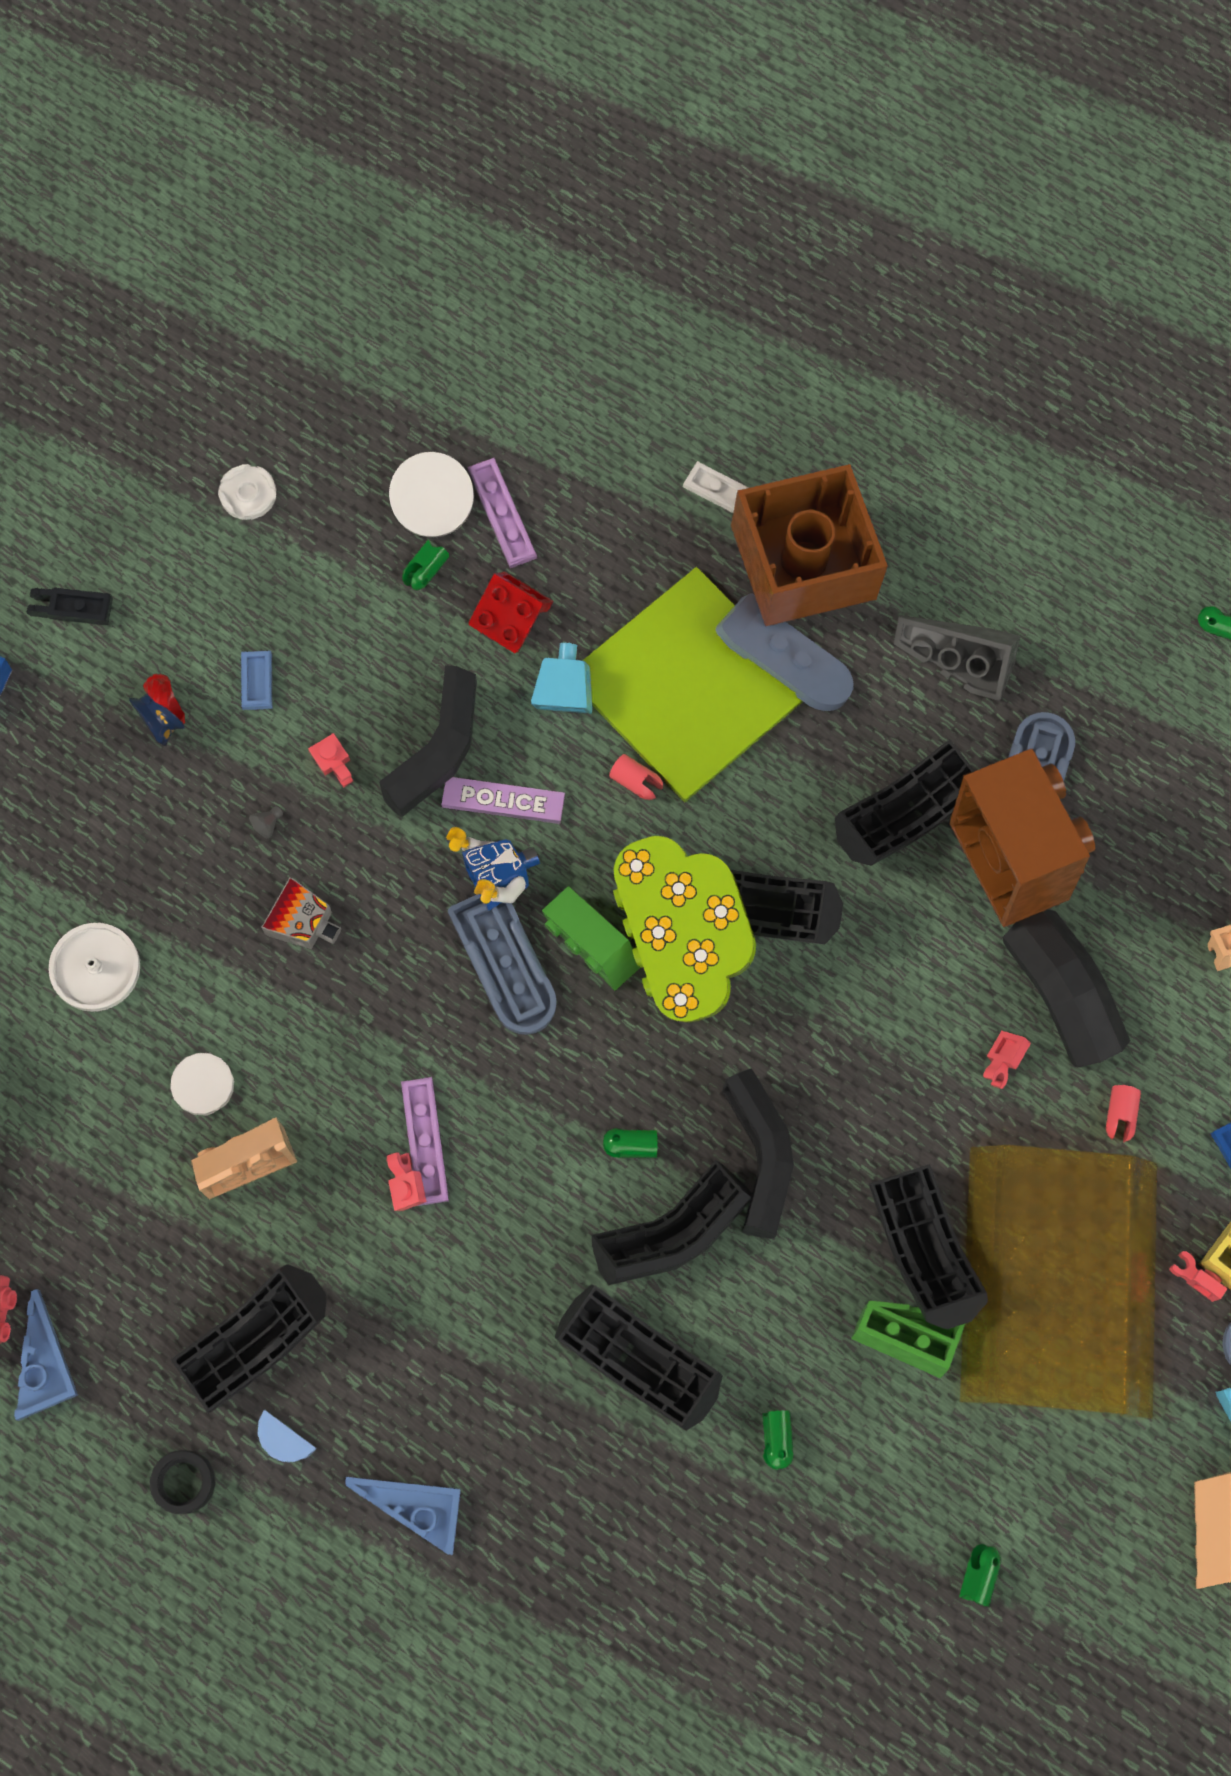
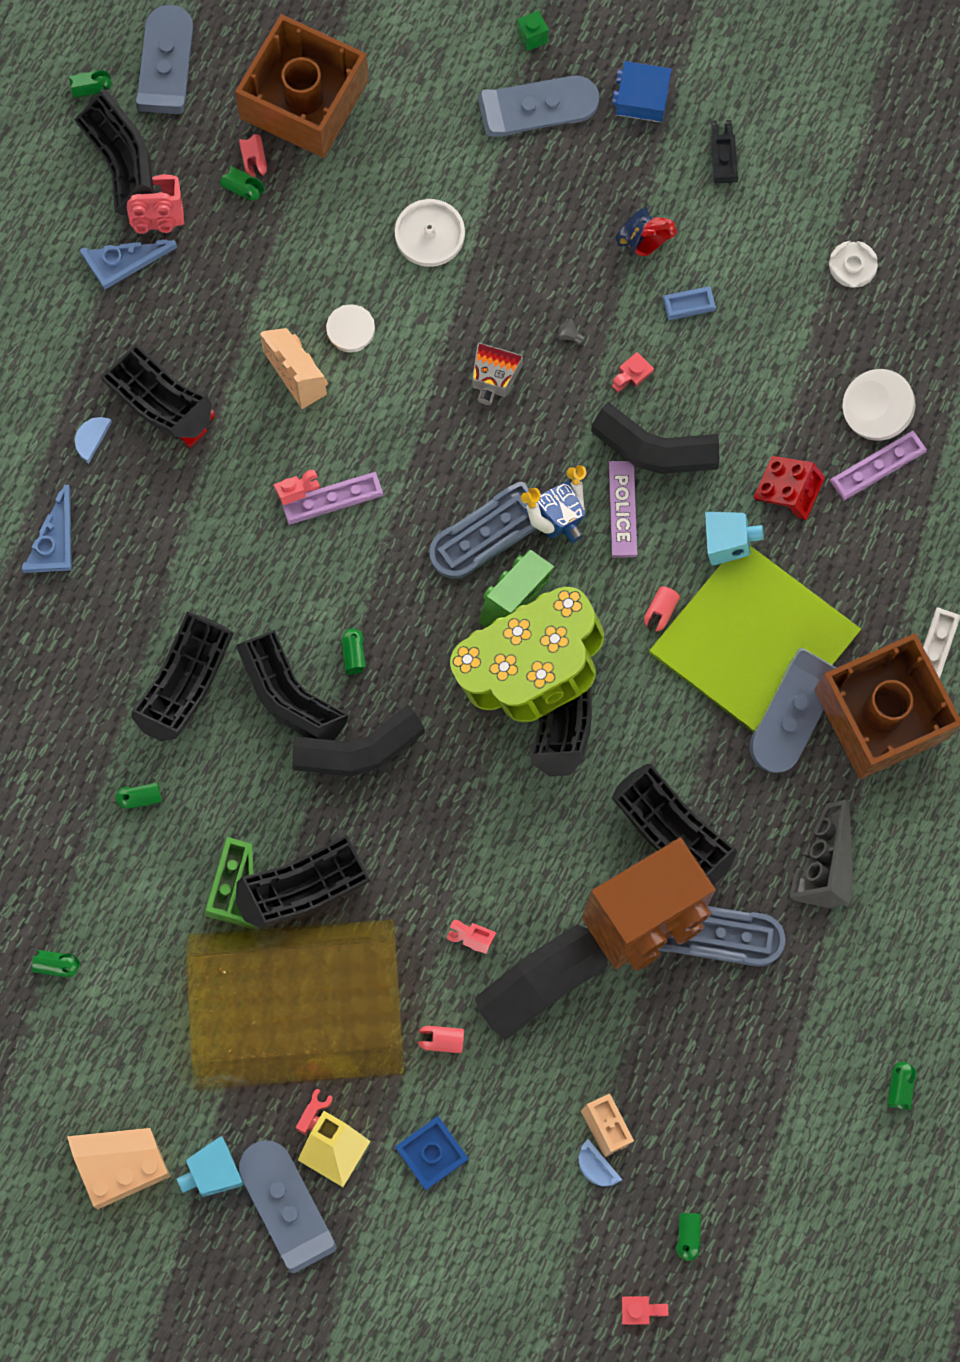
camera: 85 degrees right, 0 degrees up
(157, 1485) = (54, 390): black tyre -> none
(424, 566) = (814, 411): green piece -> none

